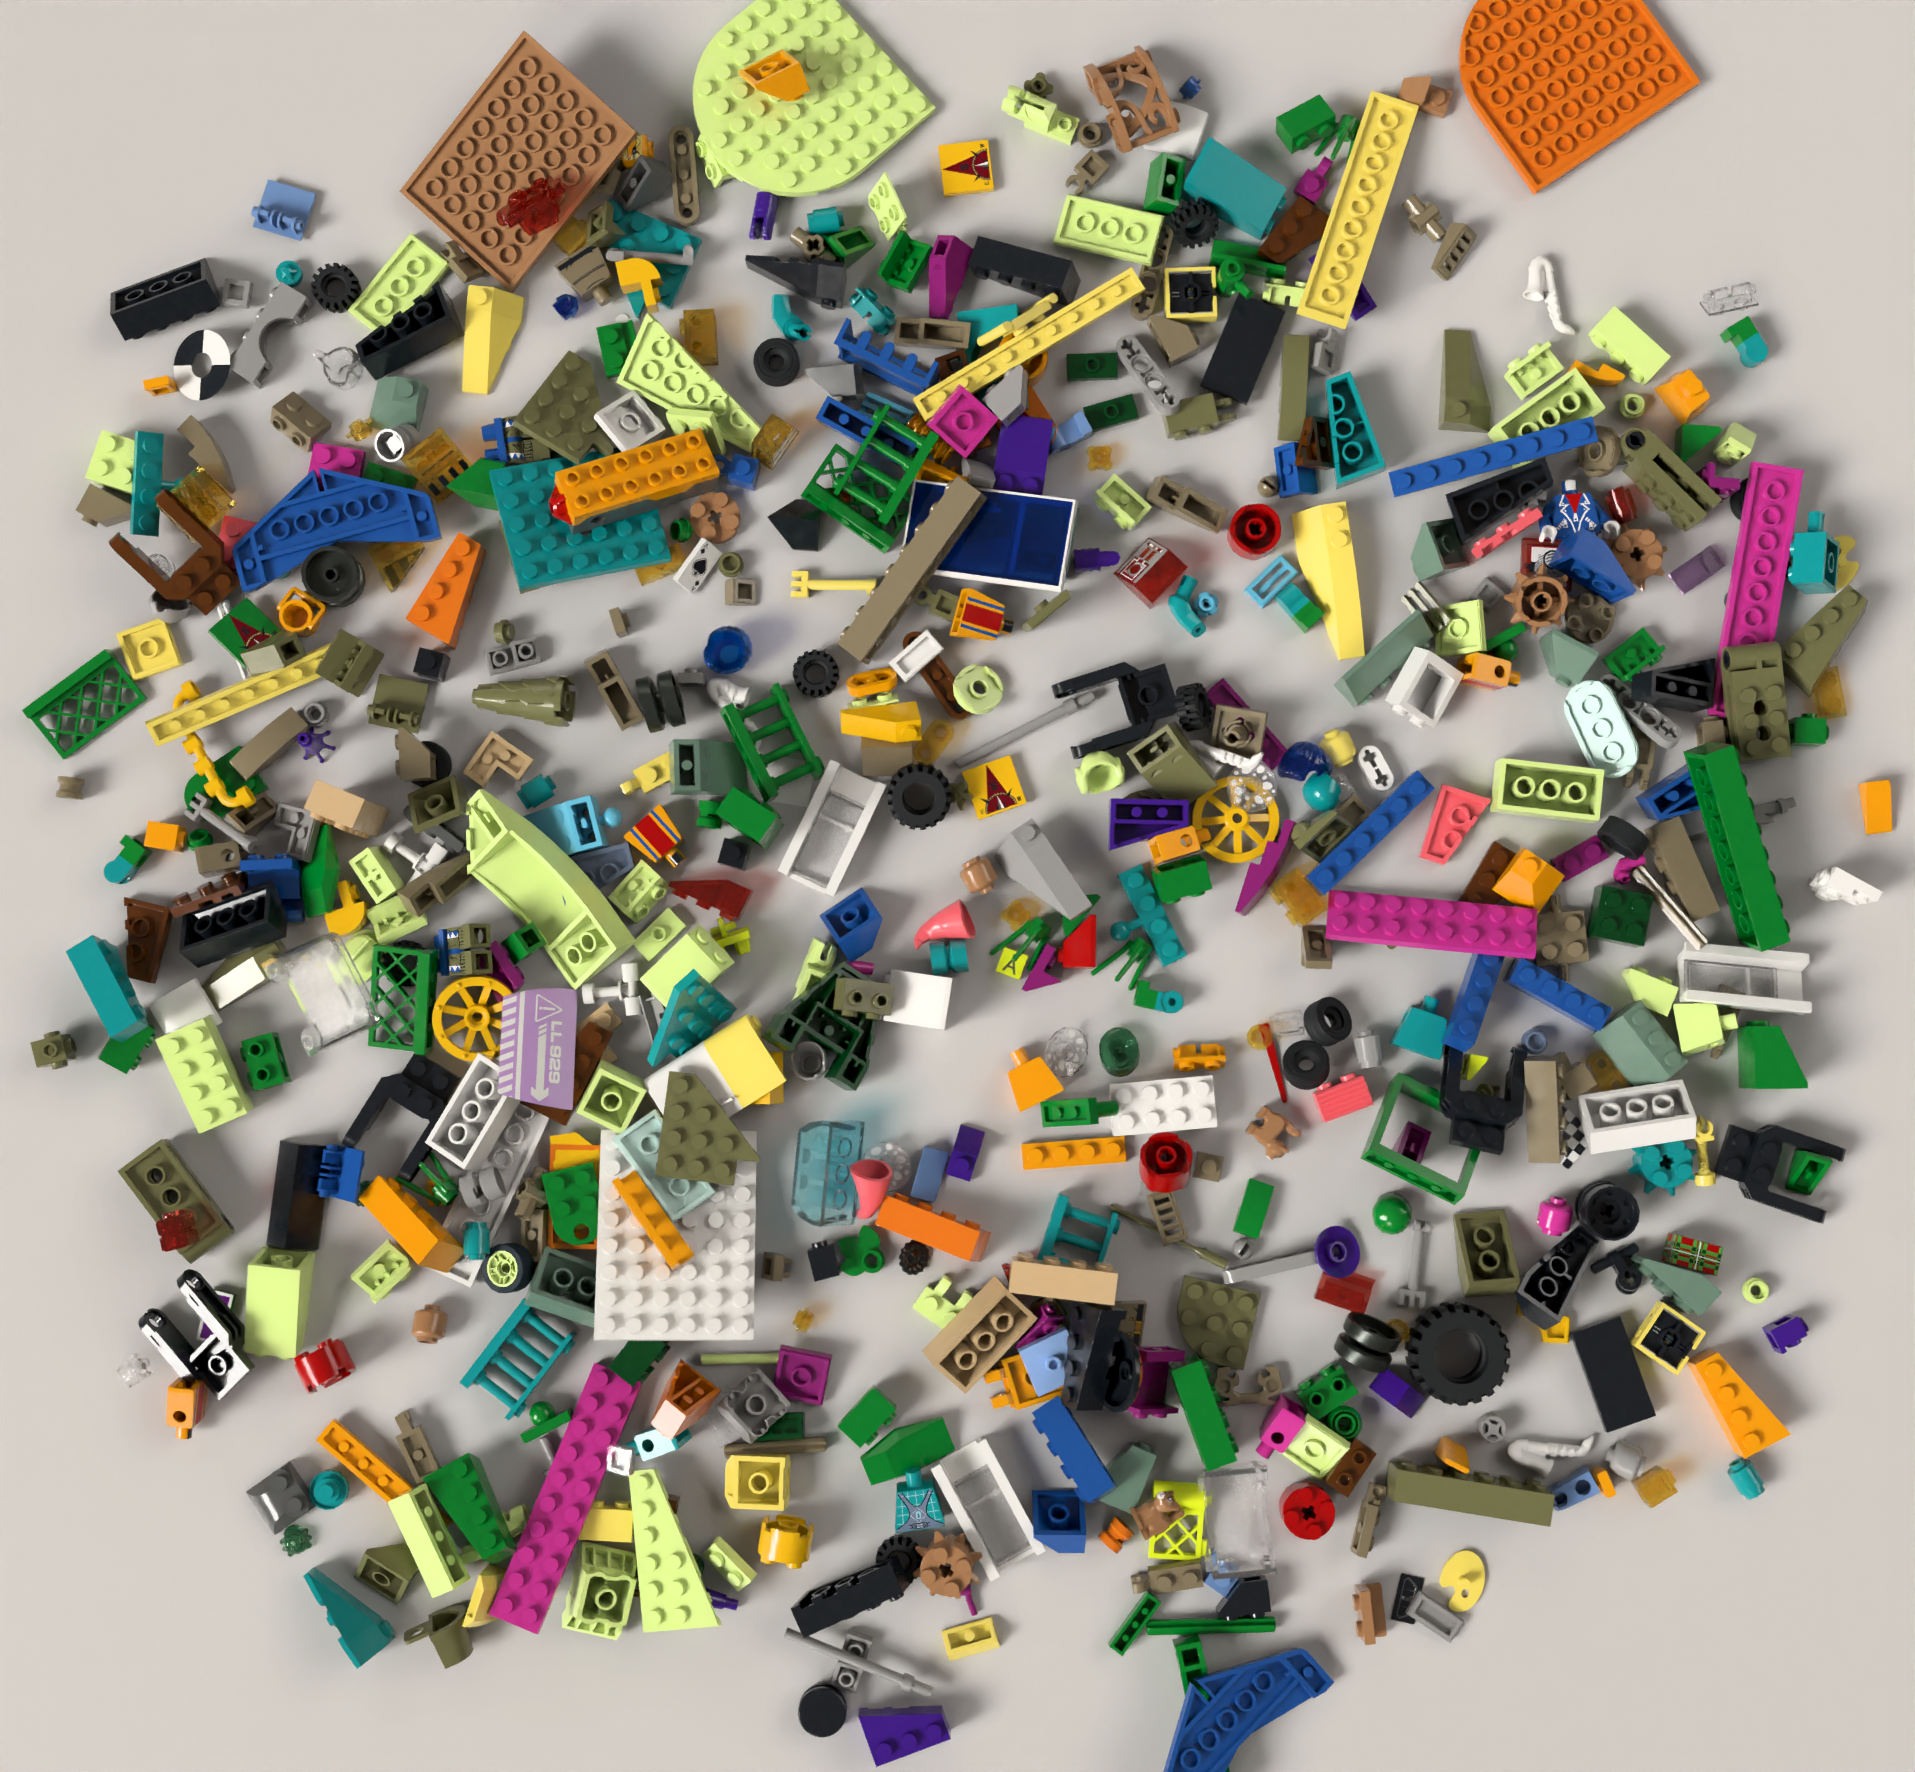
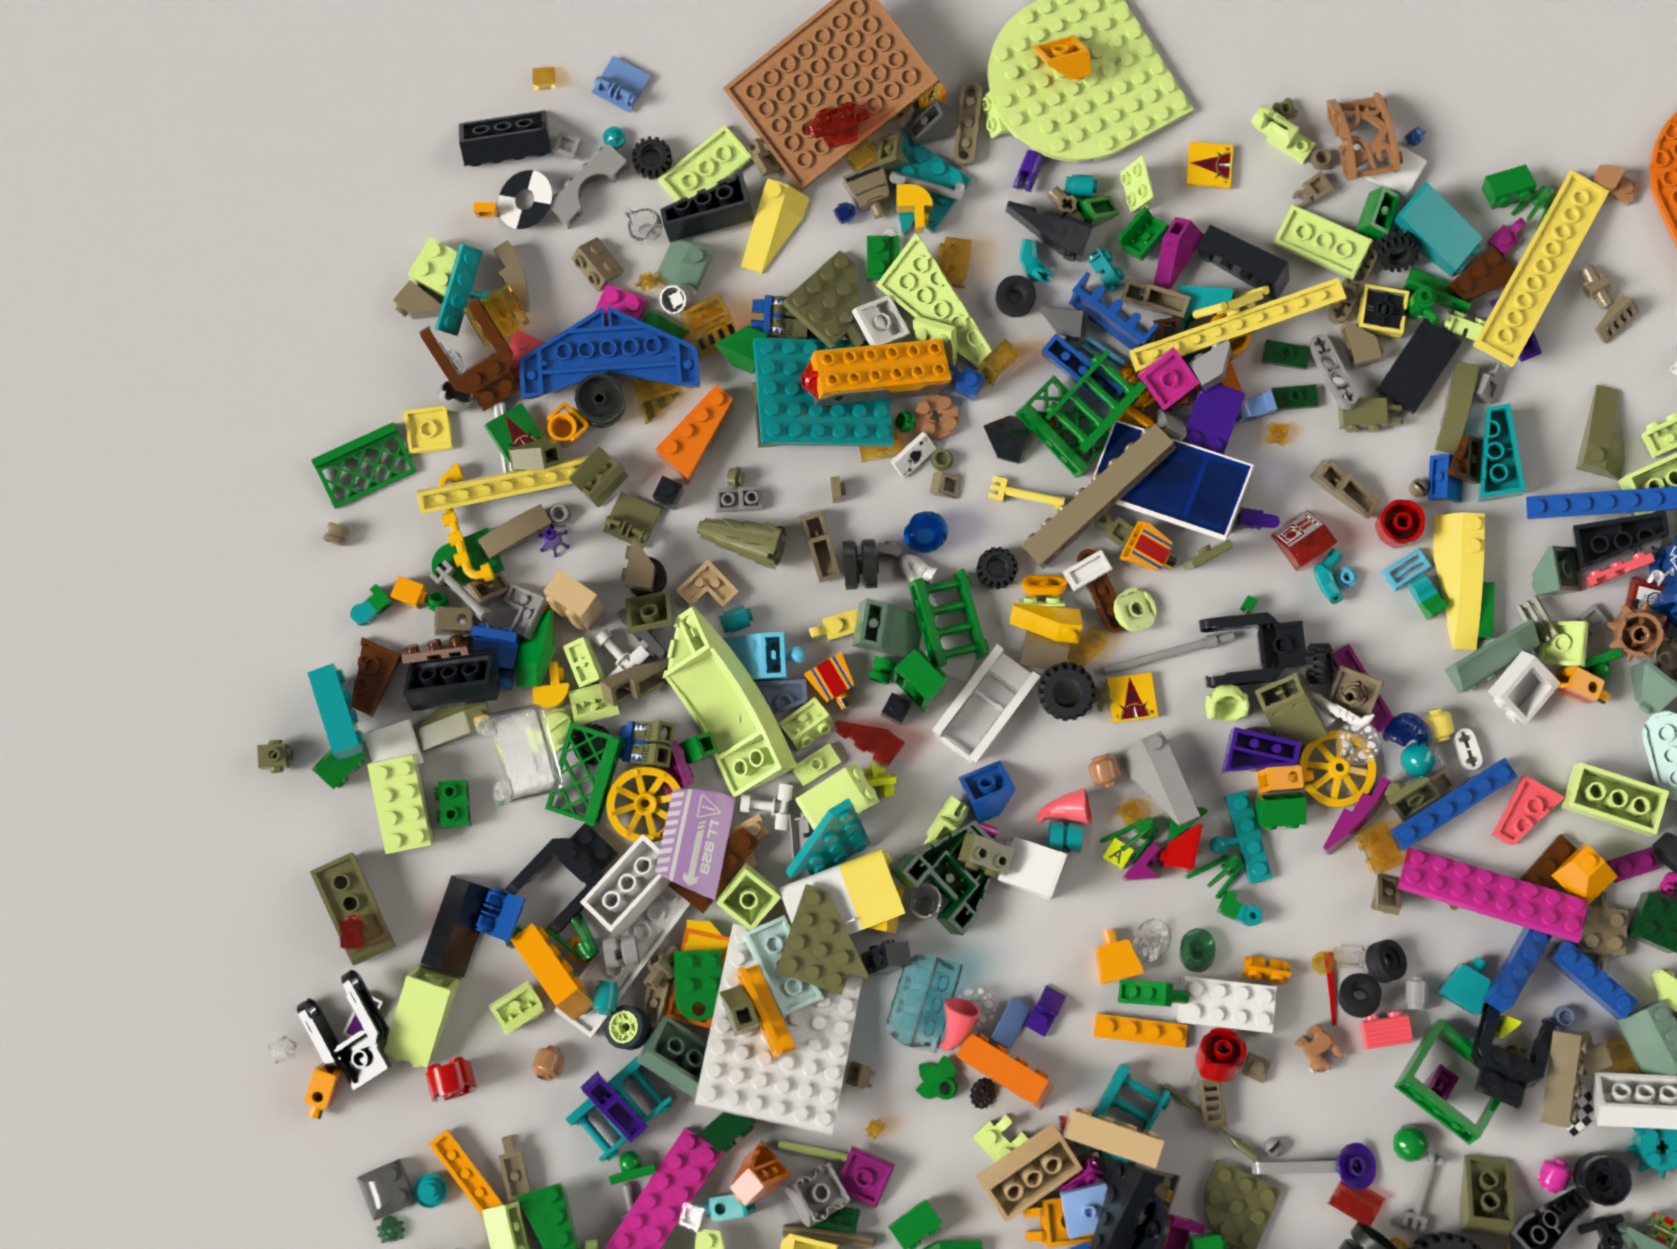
camera: 10 degrees right, 5 degrees down
(195, 221) = (543, 78): none -> clear yellow slope
(509, 1358) = (614, 1106): none -> dark purple slope
(622, 1226) = (739, 1010): none -> olive slope
(776, 1133) = (886, 957): none -> black brick
(823, 1260) = (903, 1079): black brick -> none
(1103, 655) = (1249, 603): none -> green piece
(1121, 502) = (1290, 475): yellowish green bracket -> none
(1253, 1208) = (1289, 1113): green slope -> none
(1368, 610) = (1486, 623): none -> green piece

